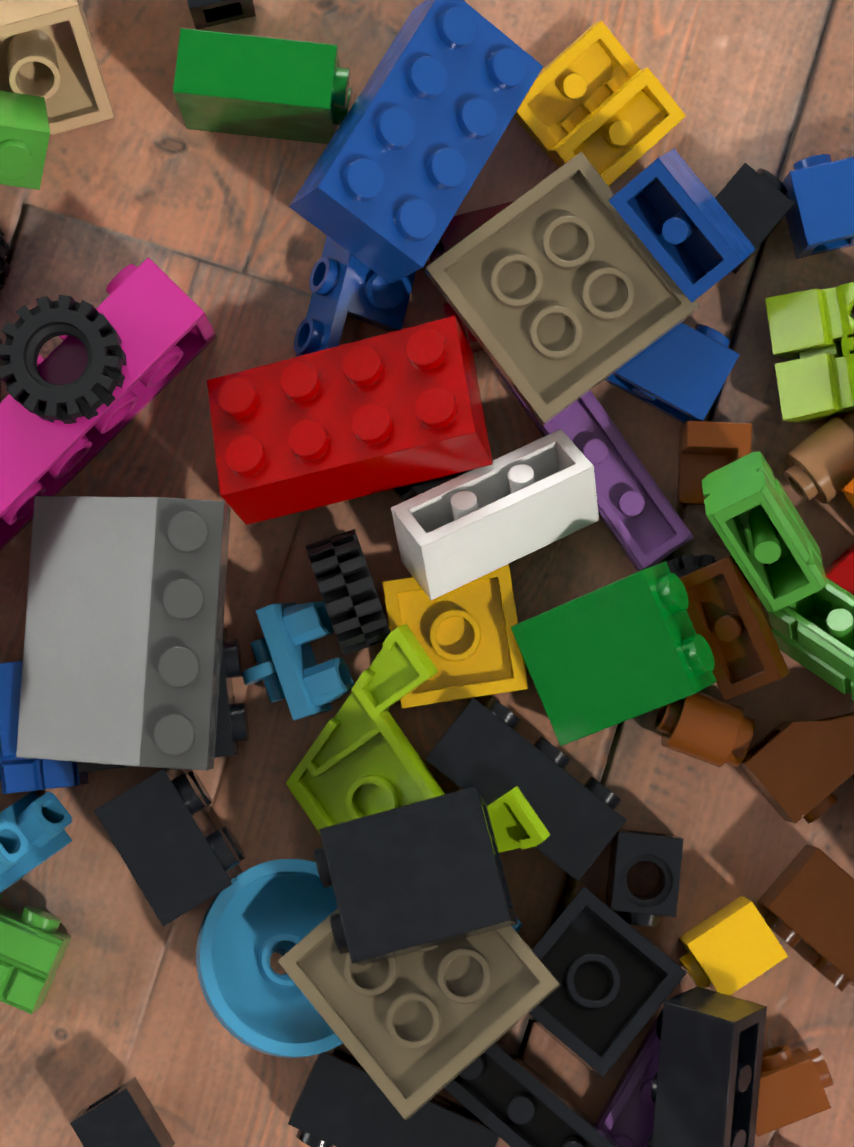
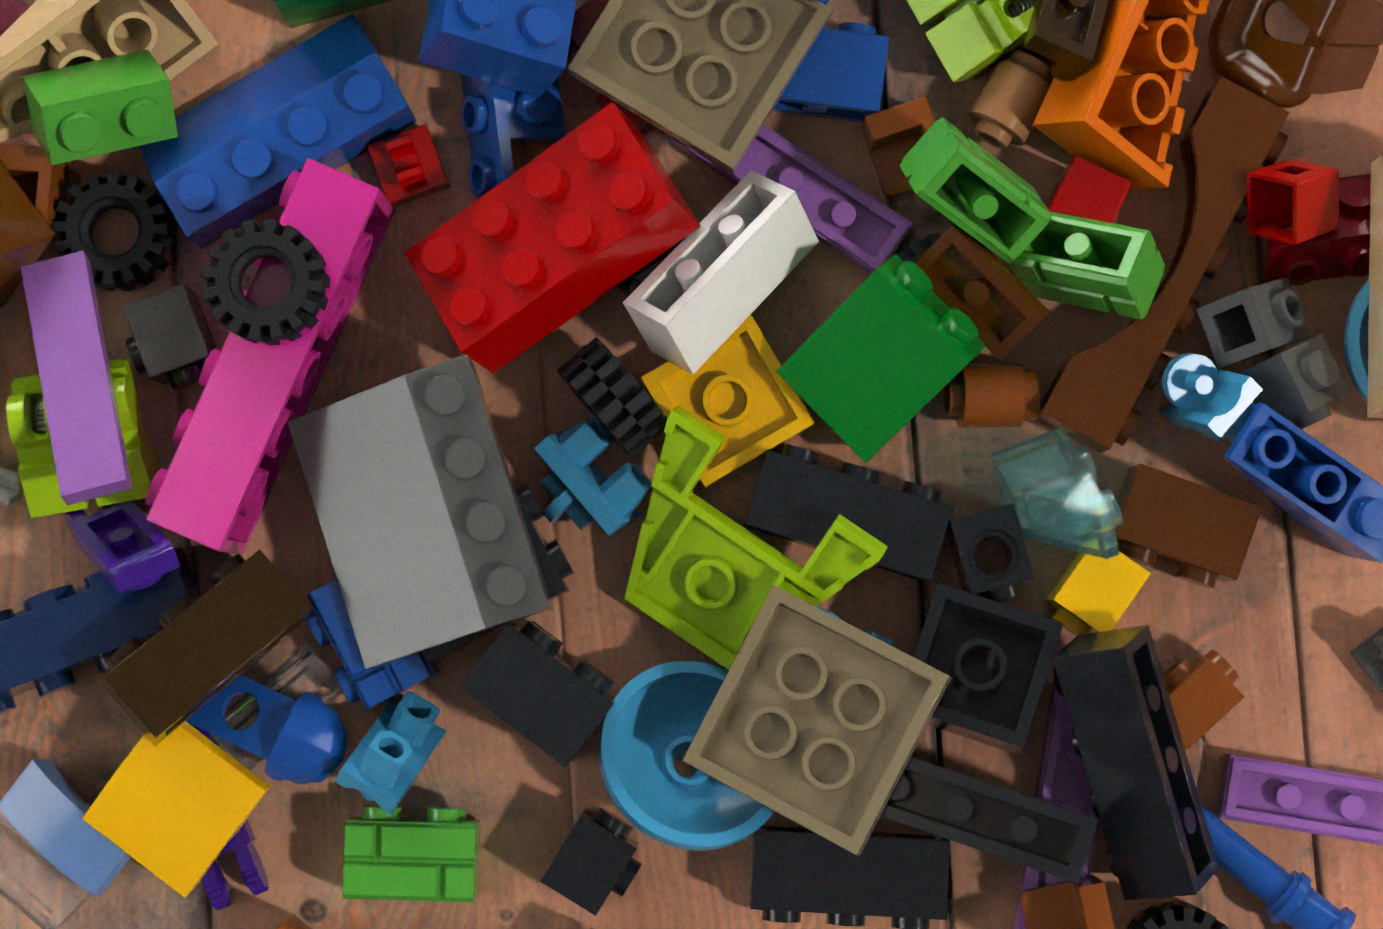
camera: 15 degrees left, 0 degrees up
(90, 220) = (246, 140): none -> blue slope
(160, 1018) = (594, 861): none -> black brick
(244, 299) = (408, 166): none -> red tile
(414, 877) = (779, 631): black brick -> none
(729, 847) = (1058, 494): none -> clear light blue slope

